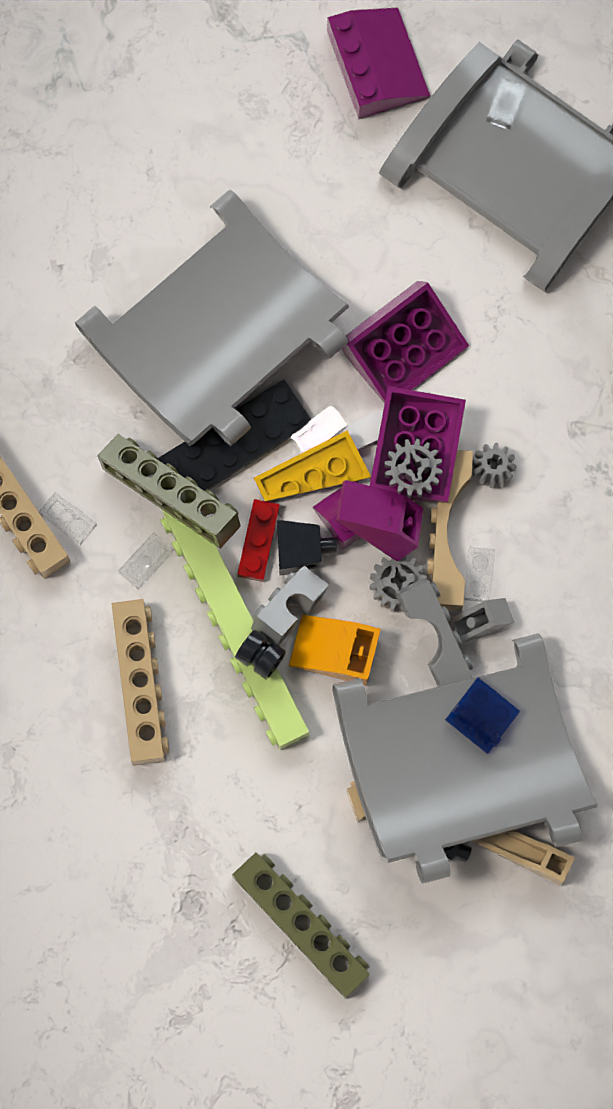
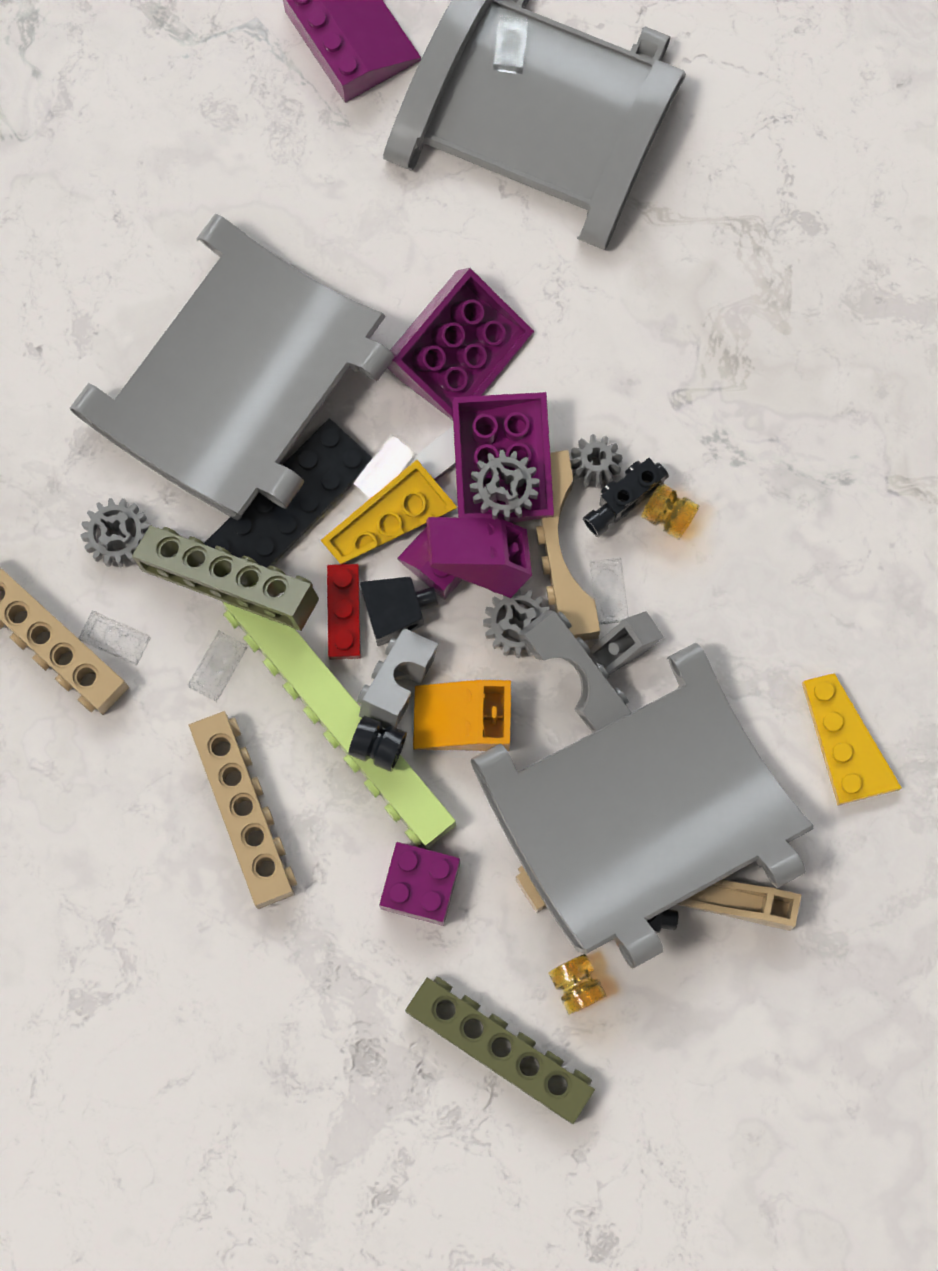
camera: 10 degrees left, 0 degrees up
(80, 439) = (109, 543): none -> light grey gear
(268, 776) = (419, 883): none -> magenta brick
(376, 887) = (576, 972): none -> clear yellow wheel
(482, 715) = (654, 753): clear blue hinge -> none
(513, 498) = (625, 494): none -> black brick
(544, 520) = (670, 511): none -> clear yellow wheel

